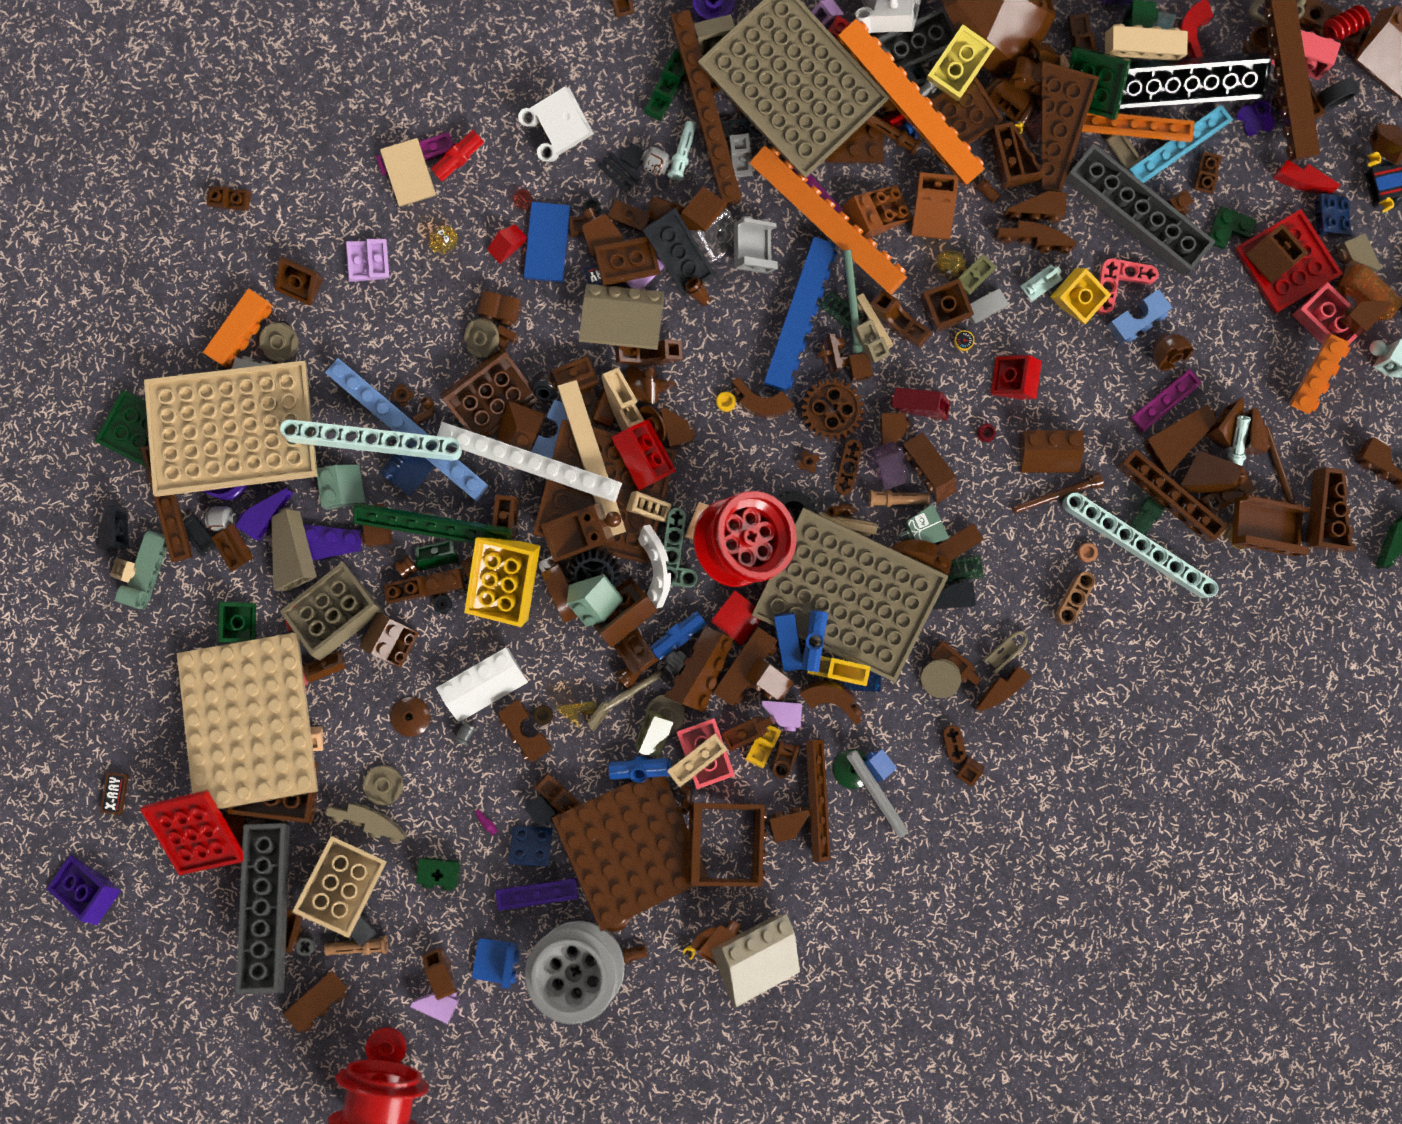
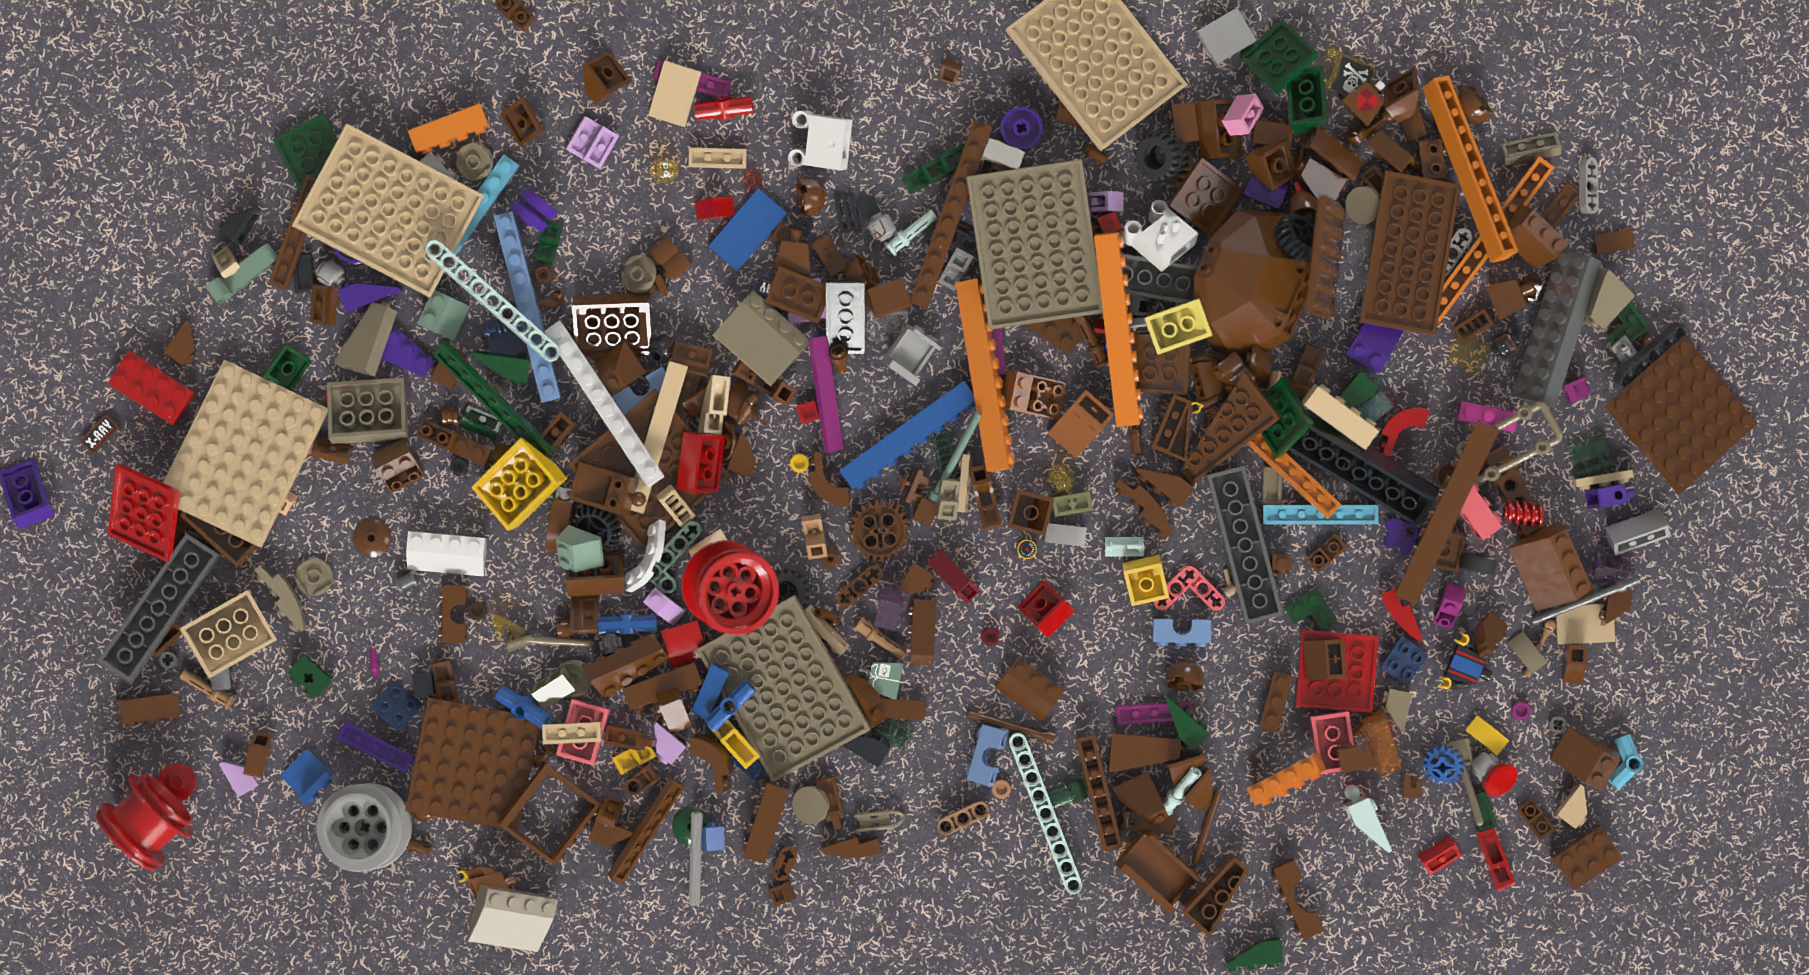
camera: 40 degrees right, 5 degrees up
(131, 721) = (152, 388): none -> red brick
(134, 666) = (183, 345): none -> reddish brown slope
(310, 353) = (491, 190): none -> medium azure plate
(339, 200) = (603, 77): none -> reddish brown slope
(355, 344) = (533, 210): none -> dark purple wheel
(388, 366) = (549, 243): none -> dark green slope
(427, 489) = (510, 367): none -> dark green slope
(481, 200) = (717, 158): none -> tan plate
(578, 176) = (810, 196): none -> reddish brown cylinder
(698, 598) = (664, 606): none -> lavender slope
(703, 354) = (808, 412): none -> red plate
(707, 327) = (825, 394): none -> magenta tile
(777, 805) = (609, 811): none -> reddish brown plate
(782, 451) = (814, 536): none -> medium nougat brick
(915, 719) = (766, 821): none -> reddish brown brick
(1048, 516) = (980, 770): none -> medium blue arch
(1153, 256) = (1230, 589): none -> tan hand
(1200, 390) = (1187, 728): none -> dark green slope
(1255, 308) = (1275, 702): none -> reddish brown arch
(1338, 144) = (1449, 605): none -> magenta slope

